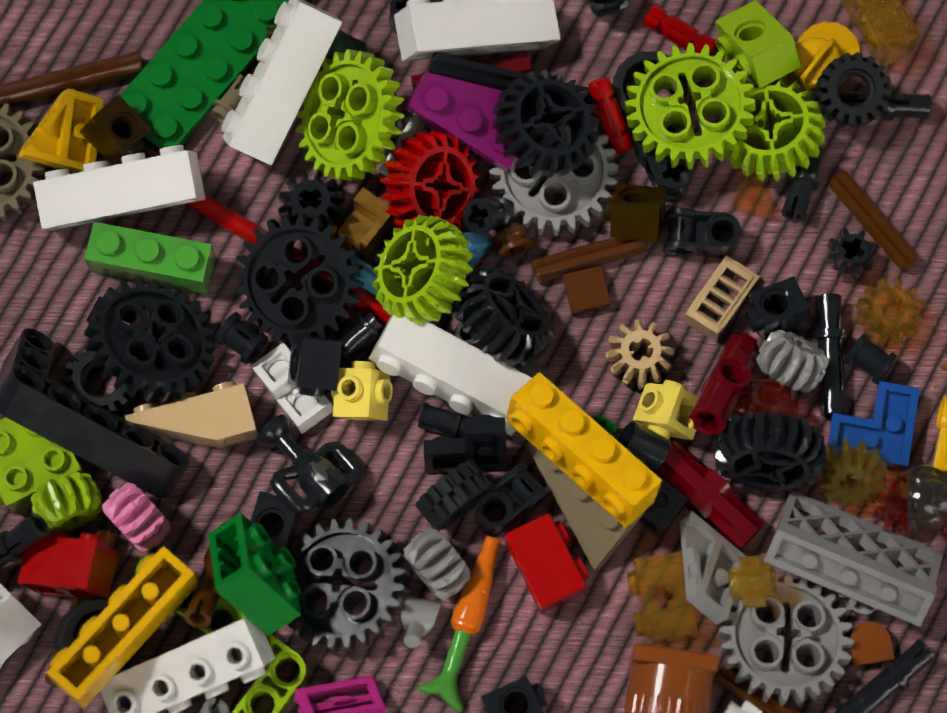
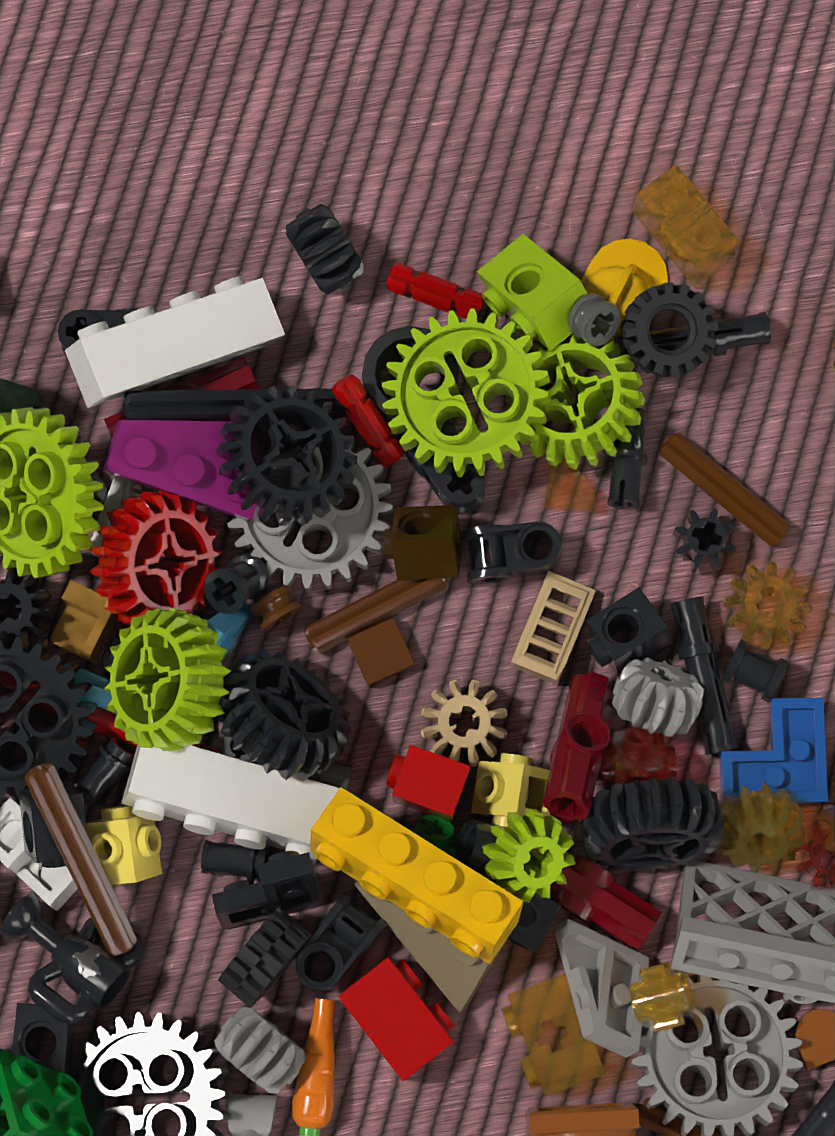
camera: 10 degrees left, 5 degrees up
(330, 390) = (80, 858): none -> reddish brown axle
(605, 388) = (428, 782): none -> red brick
(682, 460) = (528, 854): none -> lime gear
(793, 61) = (605, 323): none -> dark grey bush

